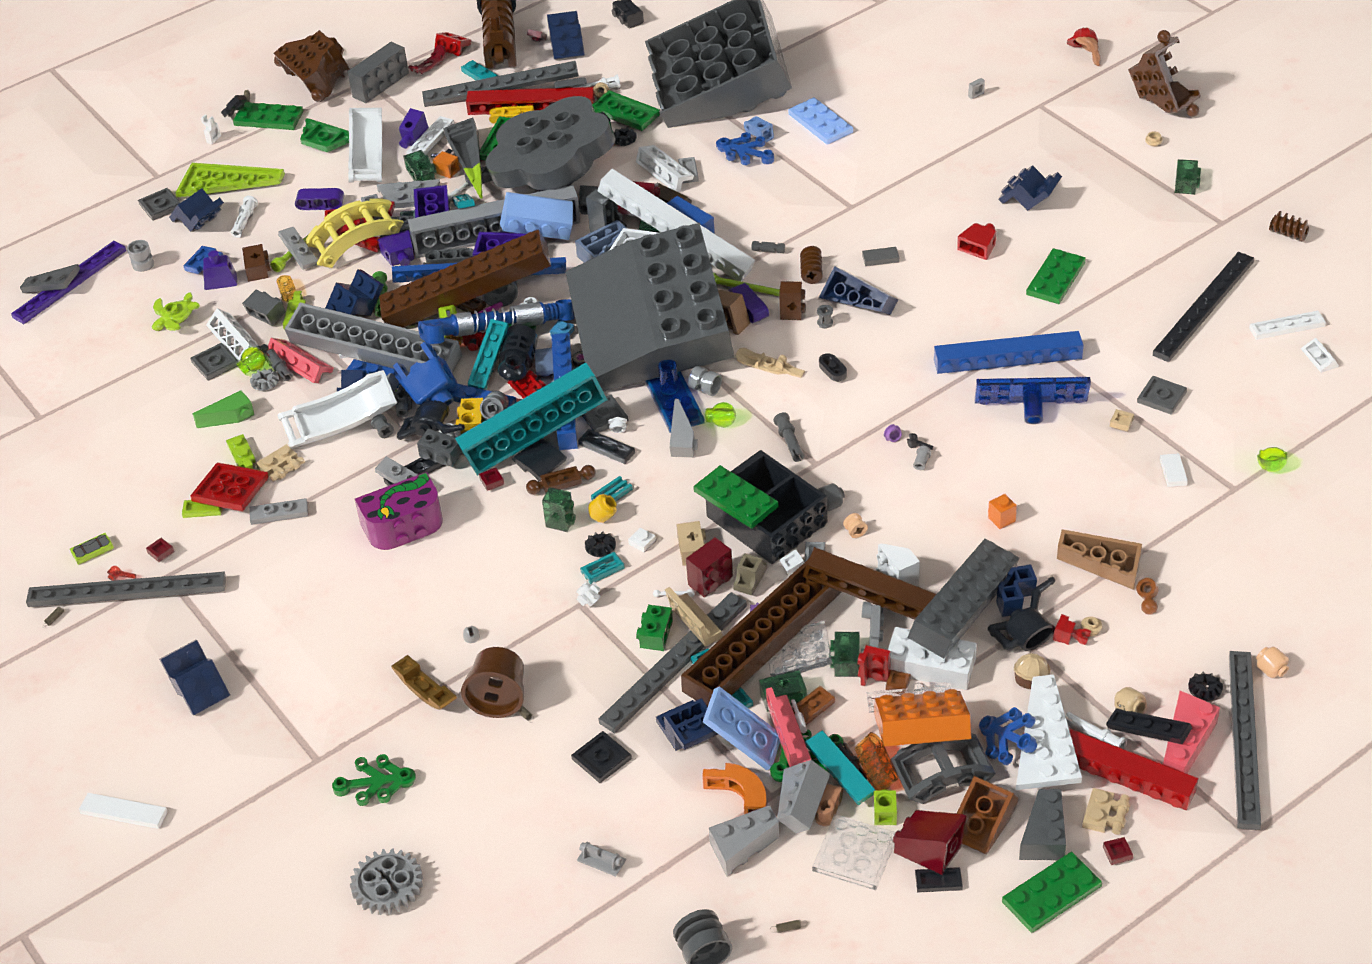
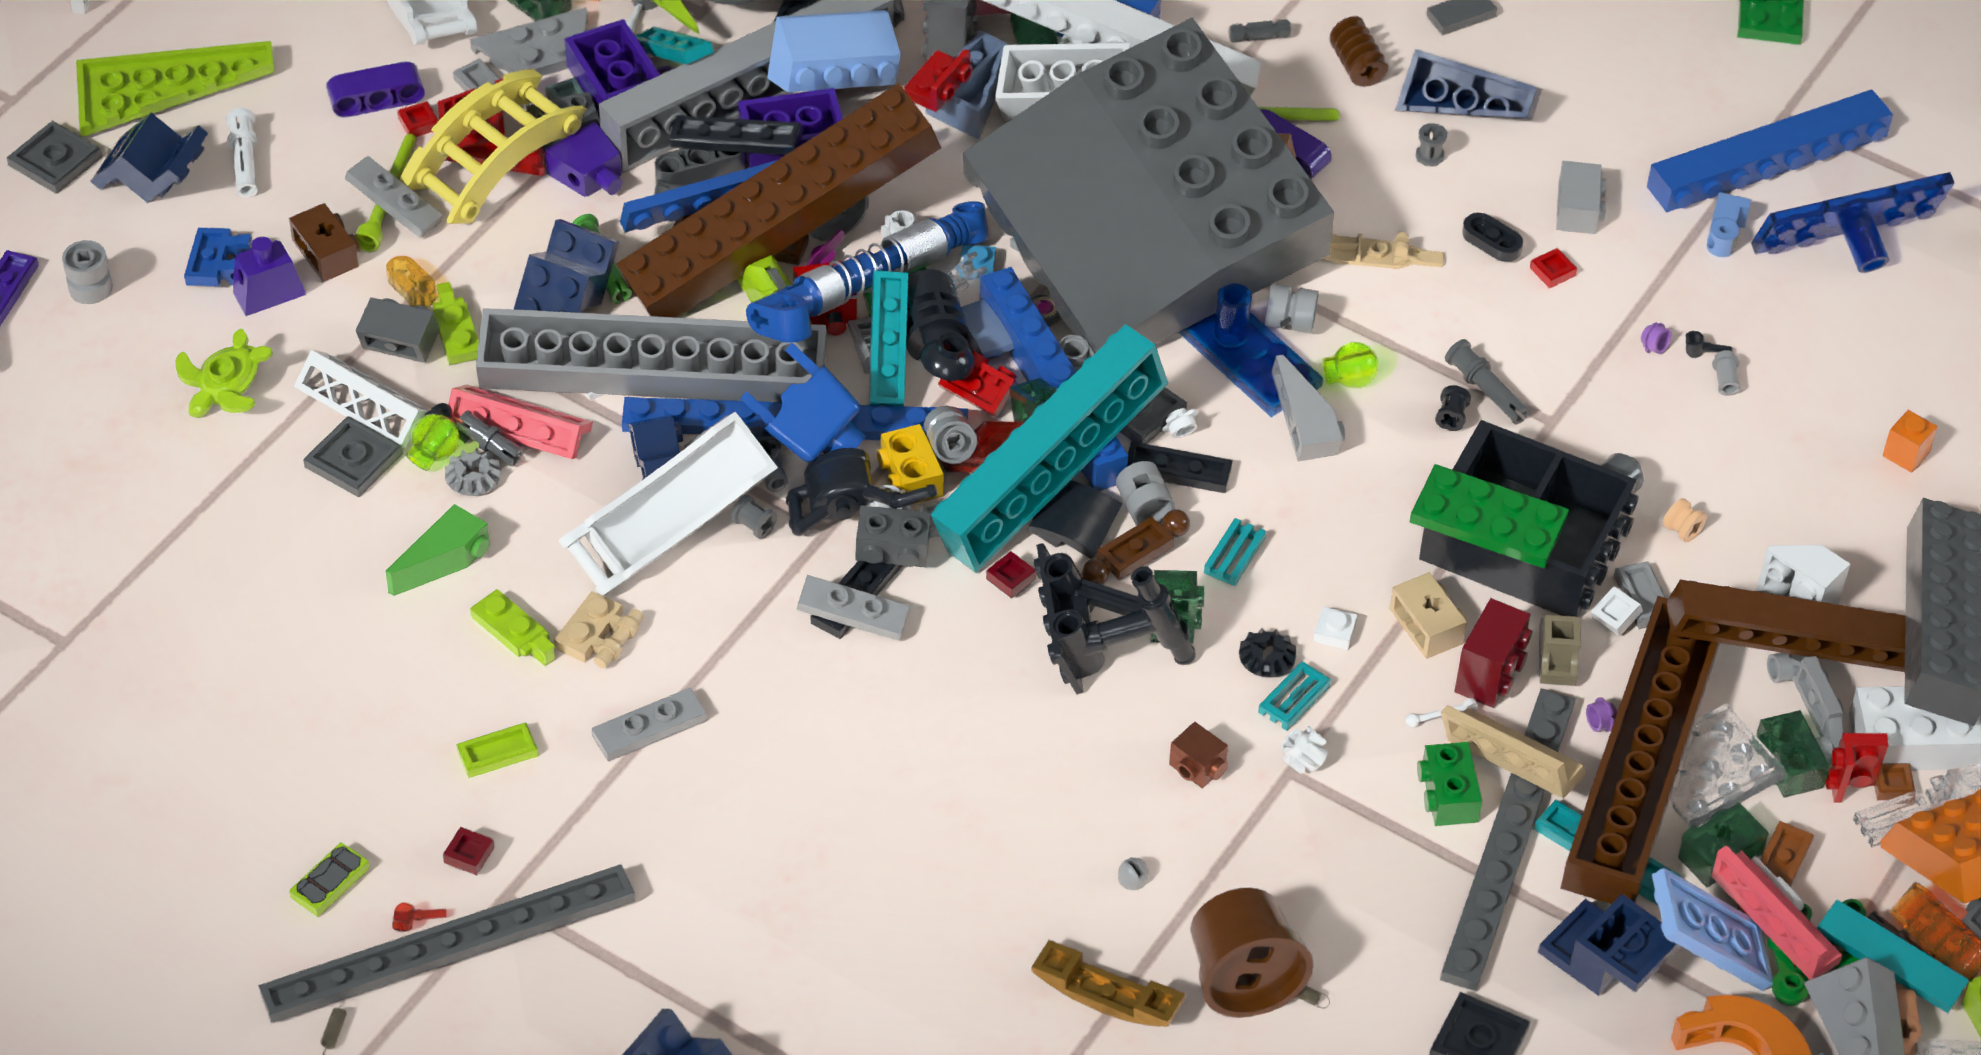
camera: 25 degrees left, 5 degrees up
(229, 486) = (534, 698): red plate -> none
(400, 512) = (891, 677): magenta brick -> none
(463, 245) = (735, 135): none -> black tile
(504, 507) = (1081, 642): none -> black plate
(533, 584) = (1198, 755): none -> copper brick
(545, 332) = (964, 272): none -> clear plate
(578, 452) = (1144, 492): none -> light grey wheel
(580, 238) = (939, 79): none -> red bracket
(602, 508) = (1244, 586): yellow head -> none
(765, 443) = (1453, 408): none -> black bush
(791, 300) = (1366, 127): reddish brown brick -> none
(858, 389) = (1553, 268): none -> red tile
(889, 356) = (1579, 197): none -> light grey brick
(963, 383) = (1728, 216): none -> medium blue leg

